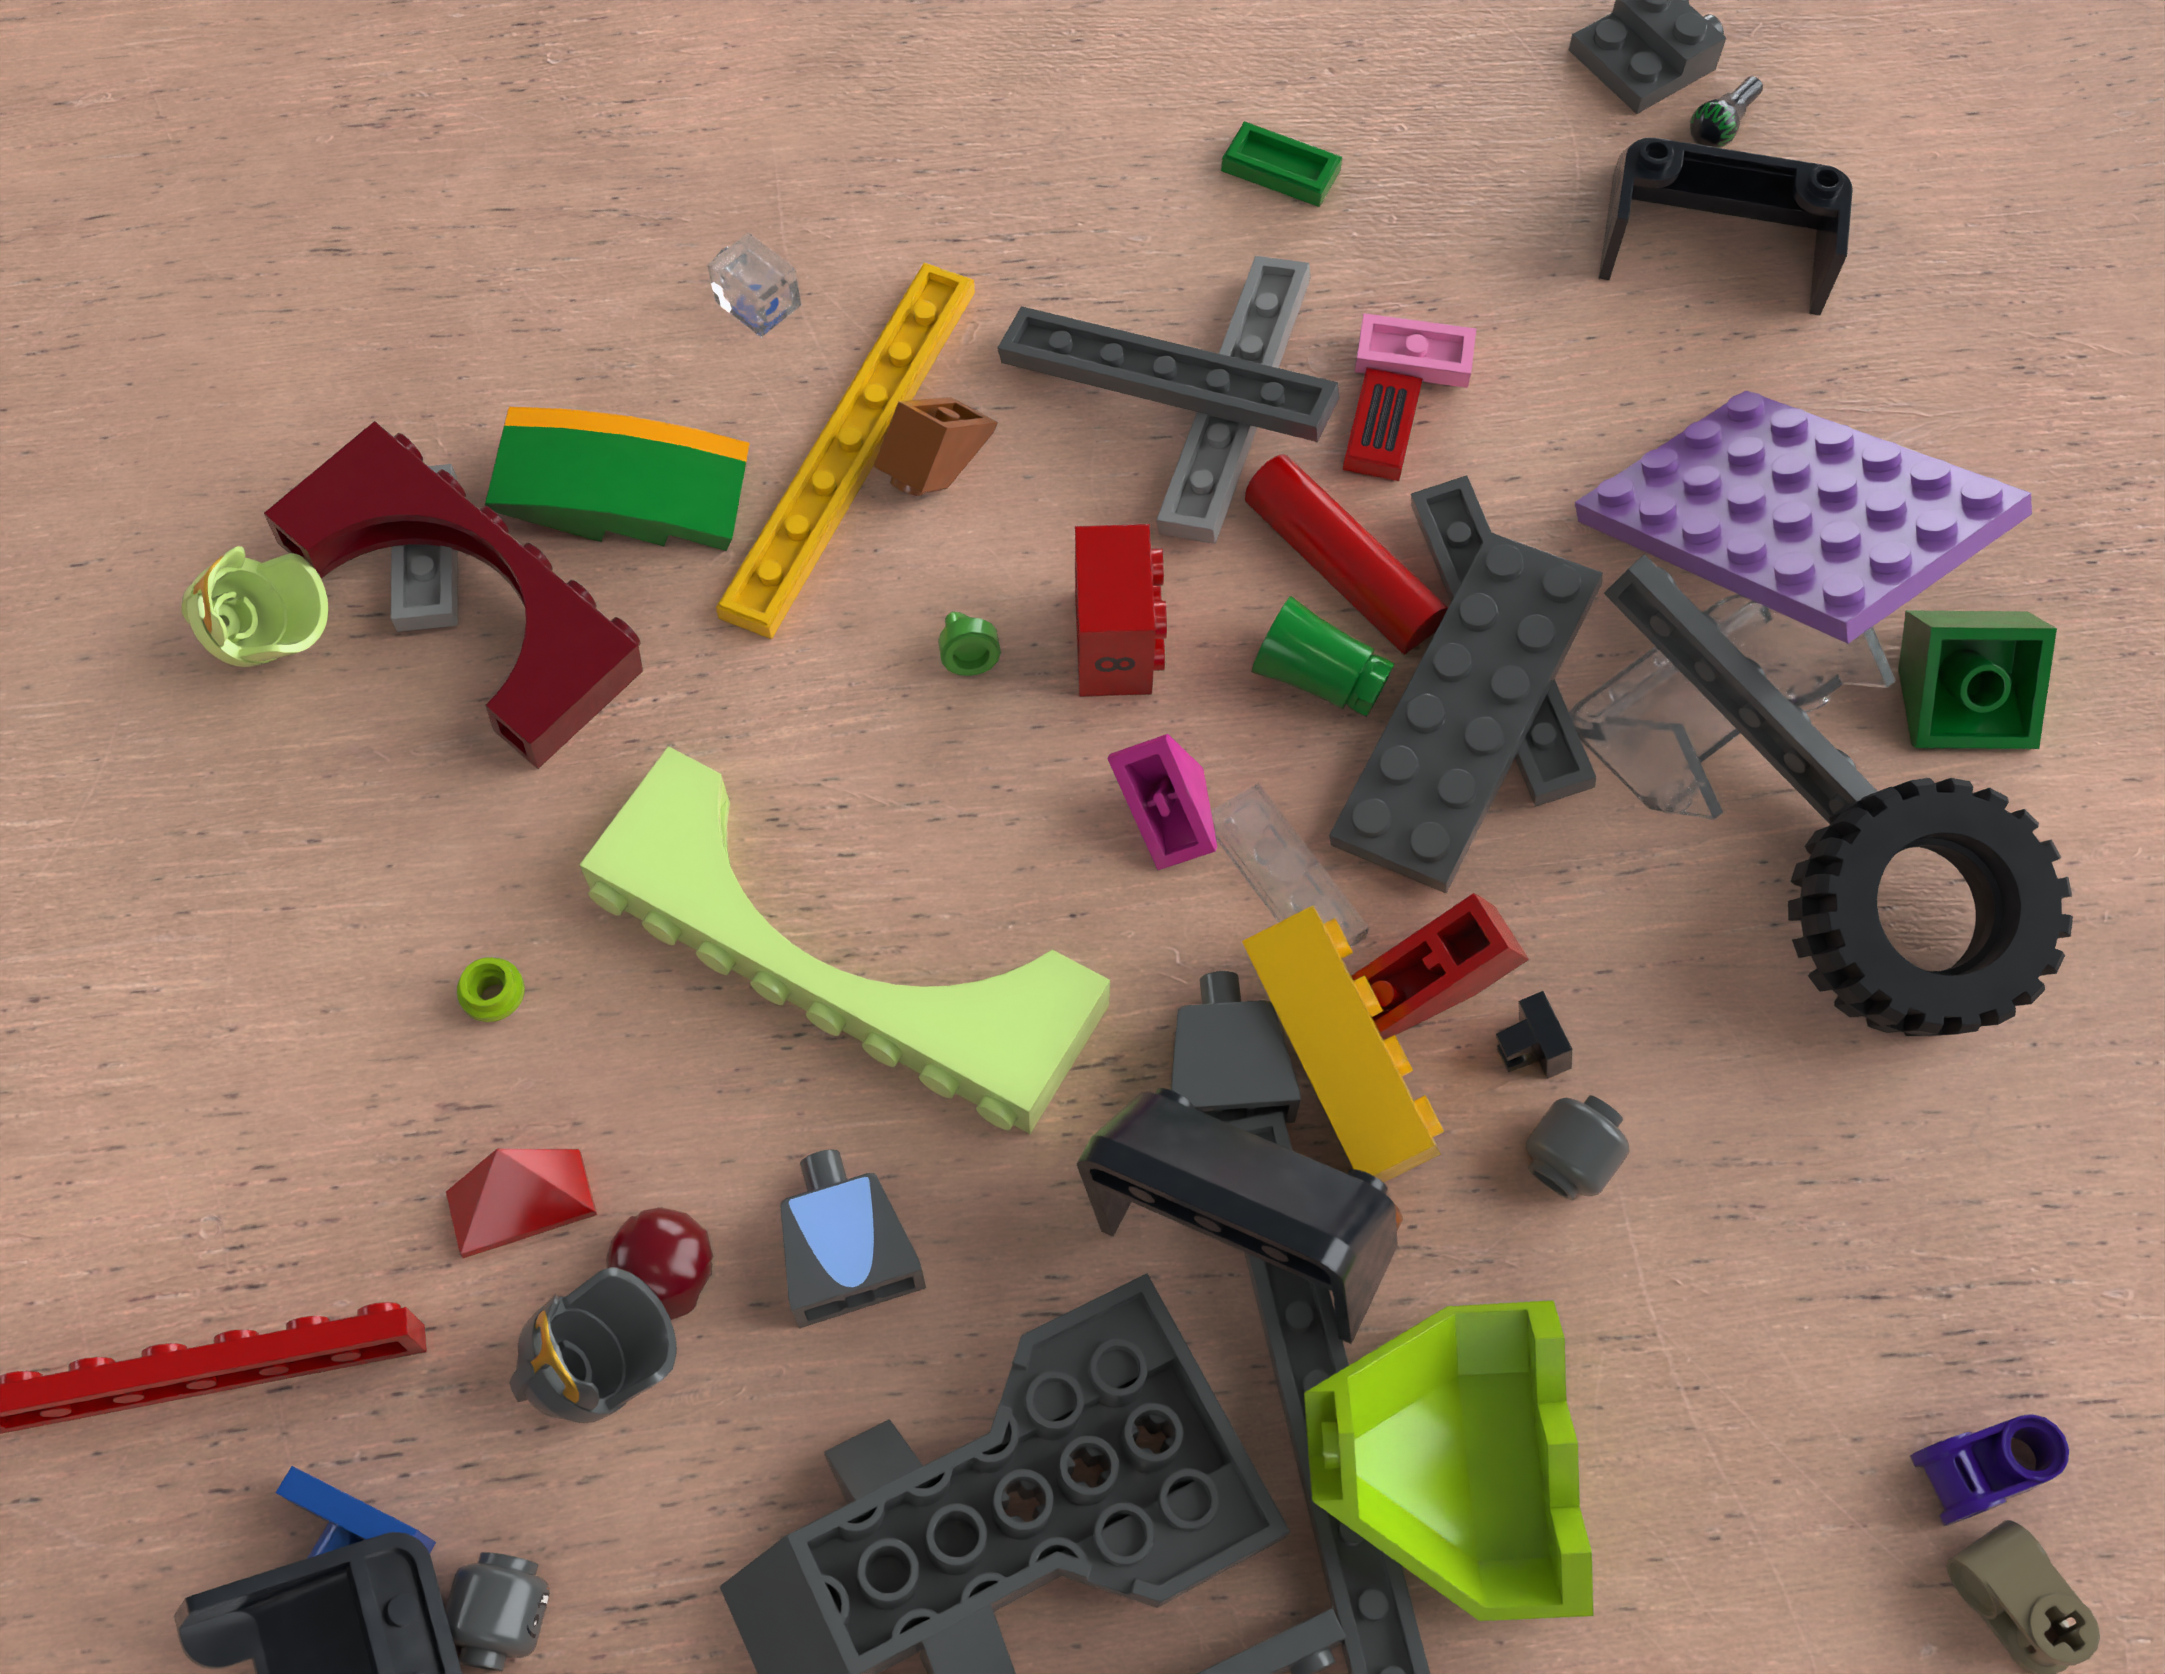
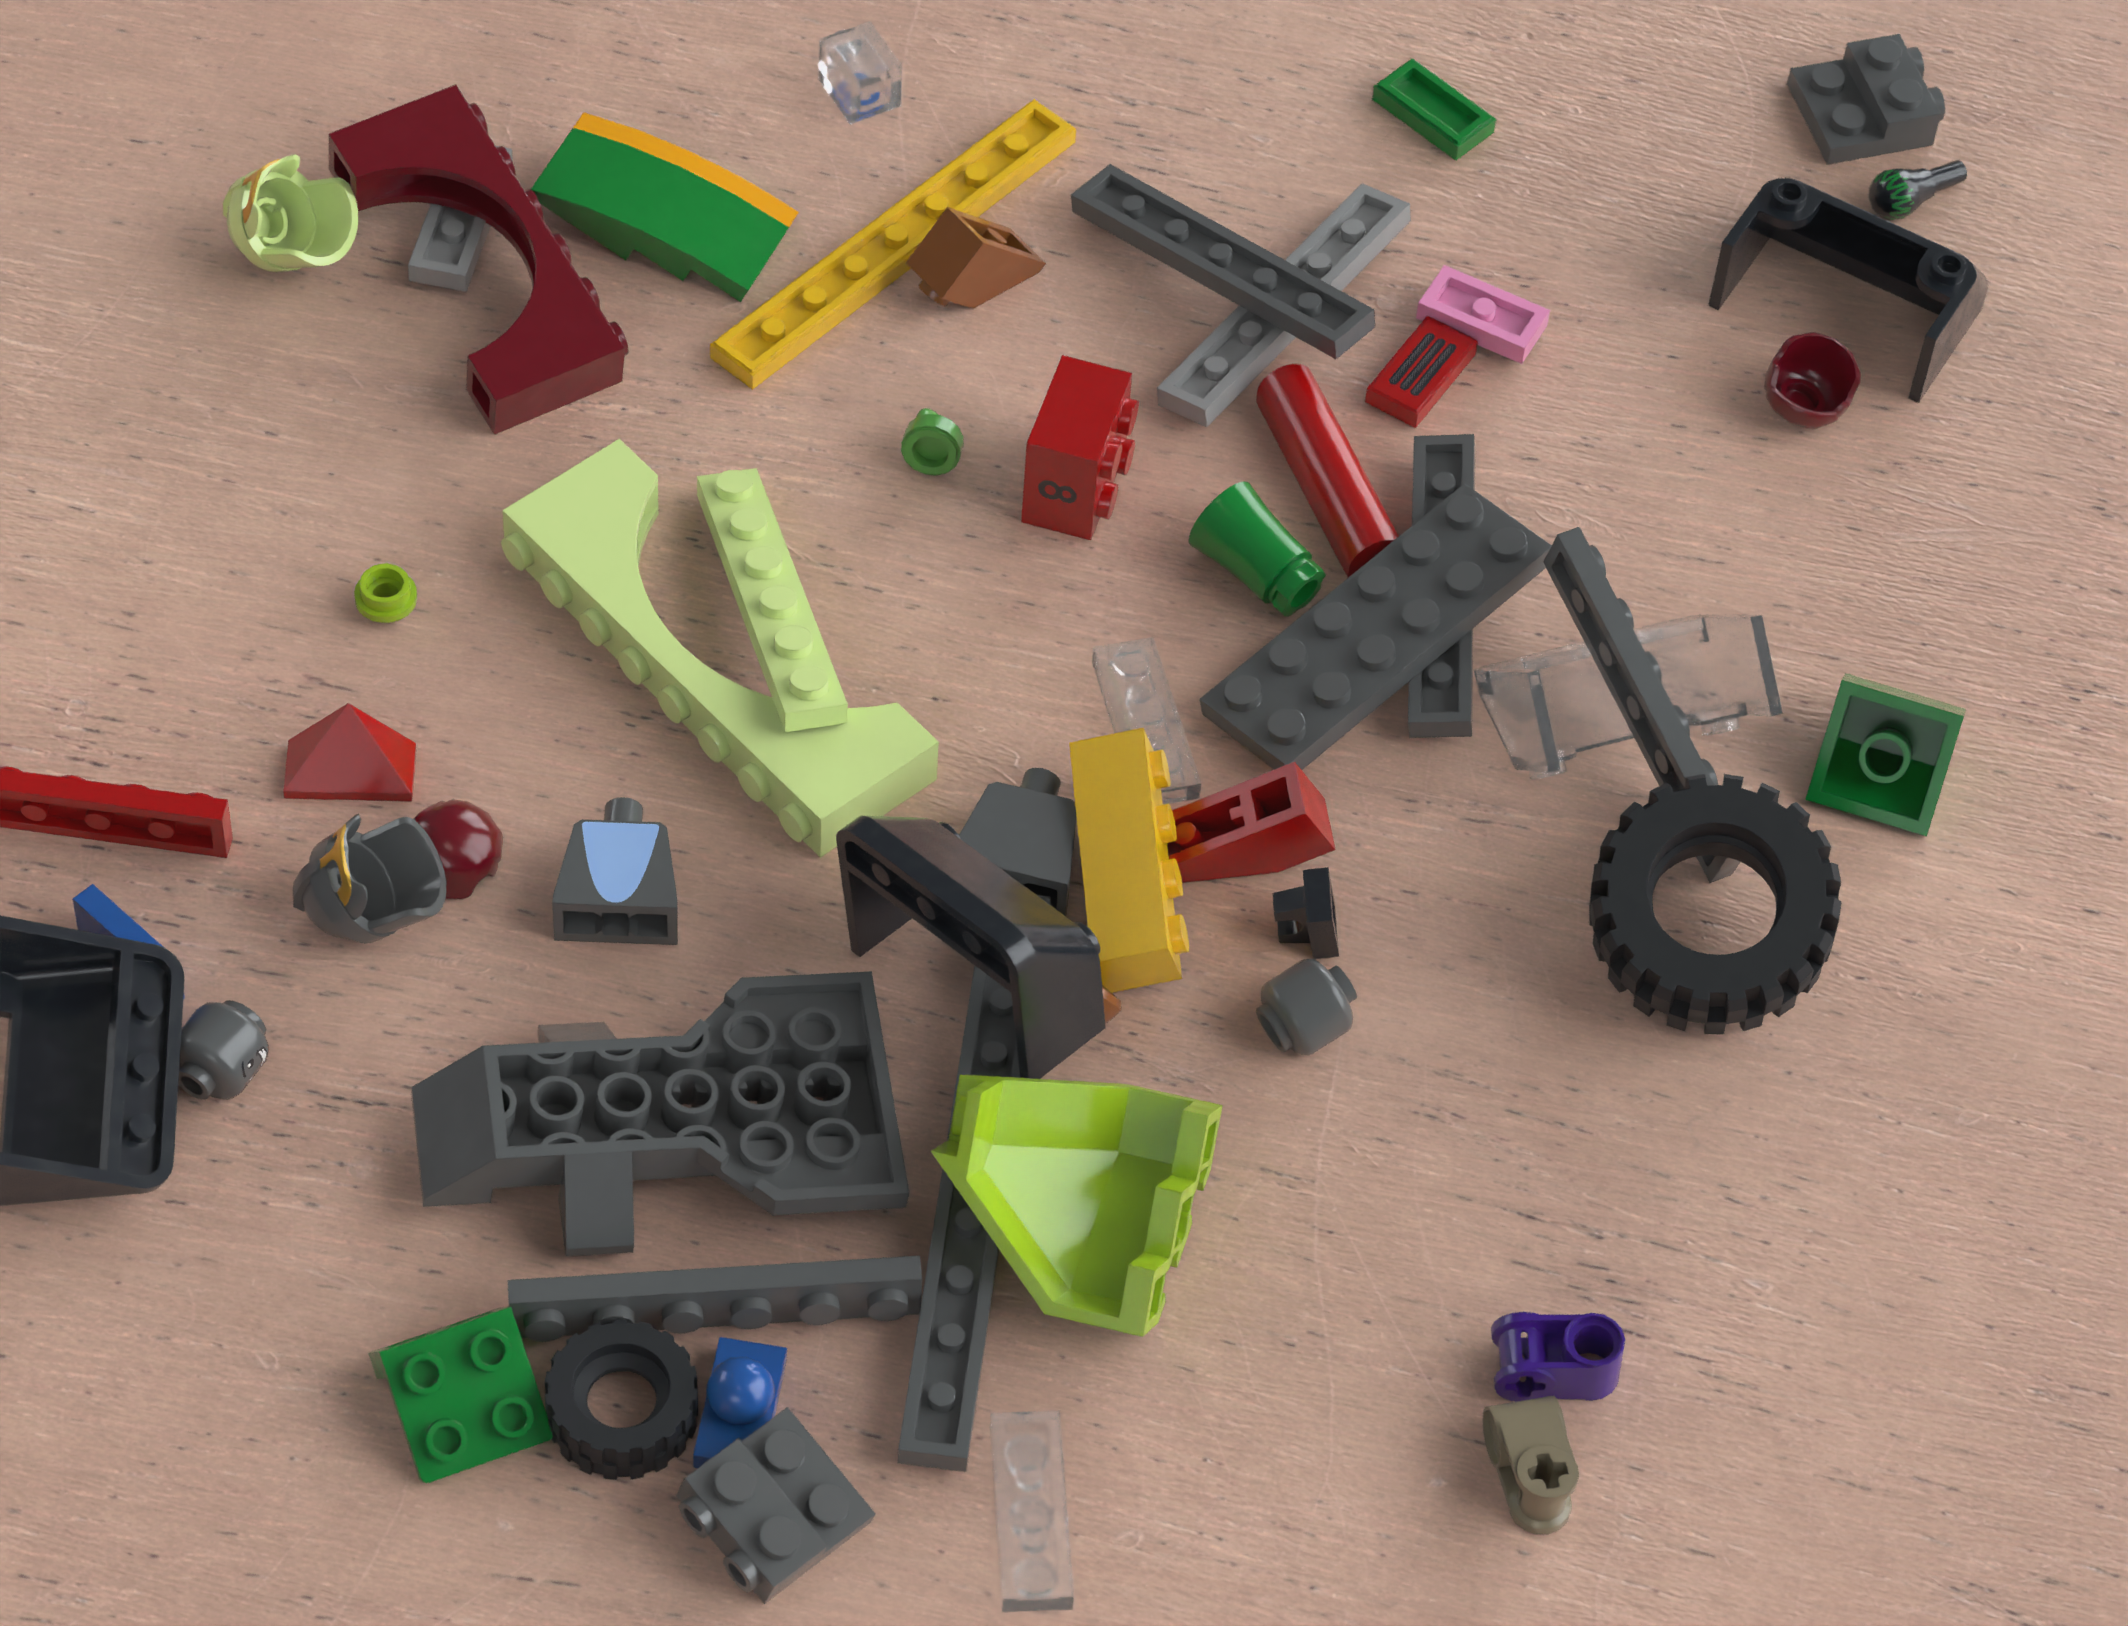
camera: 15 degrees right, 10 degrees down
(885, 876) = (771, 600): none -> yellowish green plate
(1166, 799) = (1057, 617): dark pink slope -> none
(1735, 325) = (1812, 380): none -> dark red hair
(1803, 513) = (1762, 543): medium lavender plate -> none

